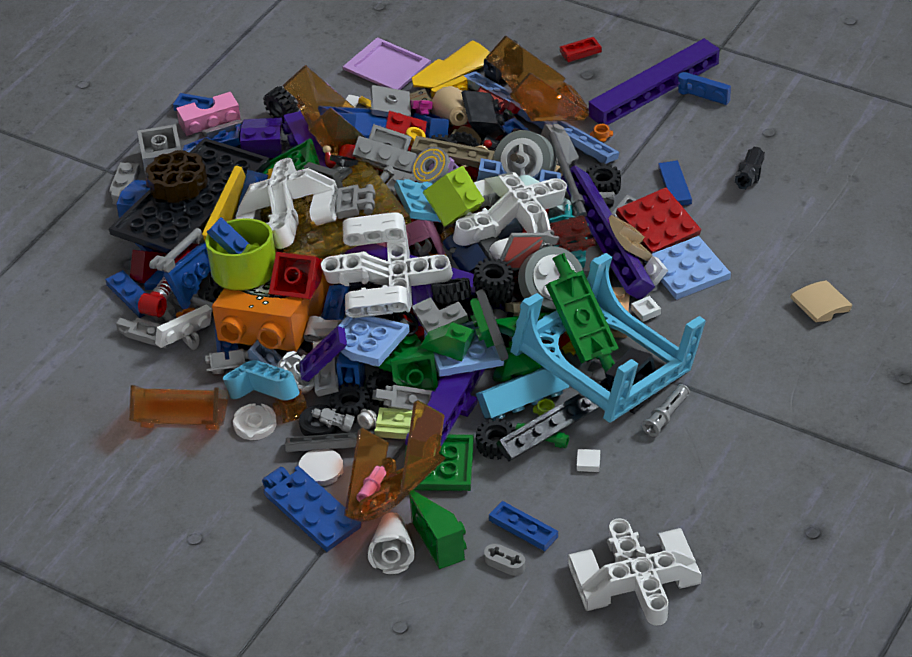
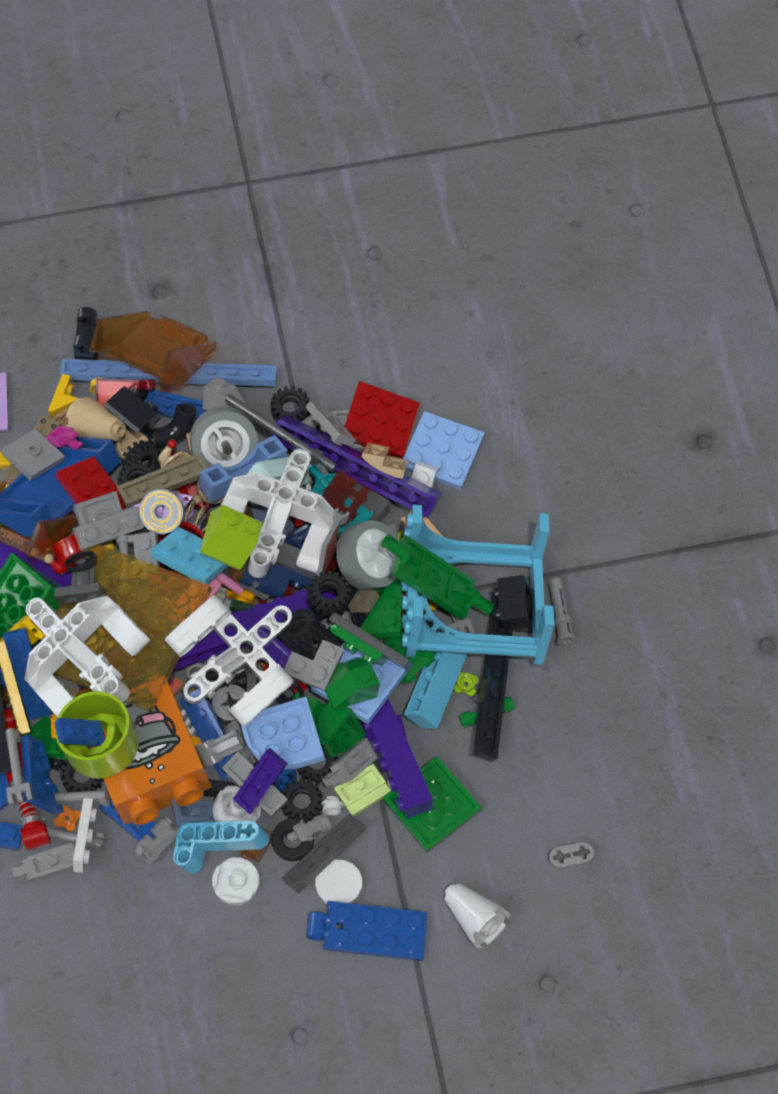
camera: 45 degrees left, 20 degrees up
(178, 407) = (163, 914): clear orange windscreen -> none
(295, 275) = (165, 721): red slope -> none
(353, 199) = (138, 608): light grey plate -> none
(372, 483) = (412, 874): bright pink axle -> none
(413, 132) = (107, 483): yellow tile -> none
(420, 461) = (442, 871): clear orange windscreen -> none
(438, 530) = (508, 876): green slope -> none
(460, 63) = (39, 364): yellow panel -> none
(490, 430) = (449, 732): black tyre -> none
(523, 526) = (557, 813): blue plate -> none
(580, 49) = (132, 268): red plate -> none
(588, 460) = (545, 708): white tile -> none
(601, 132) = (238, 348): orange plate -> none
(613, 196) = (330, 424): none -> light grey plate
(635, 571) = (670, 832): white piece -> none
(646, 308) = (451, 520): white plate -> none
(652, 82) = (233, 266): dark purple brick -> none
(675, 182) = (349, 364): blue tile -> none
(704, 88) = (283, 243): blue plate -> none
(750, 169) = (403, 309): black piece -> none
(821, 301) = (580, 411): tan slope -> none

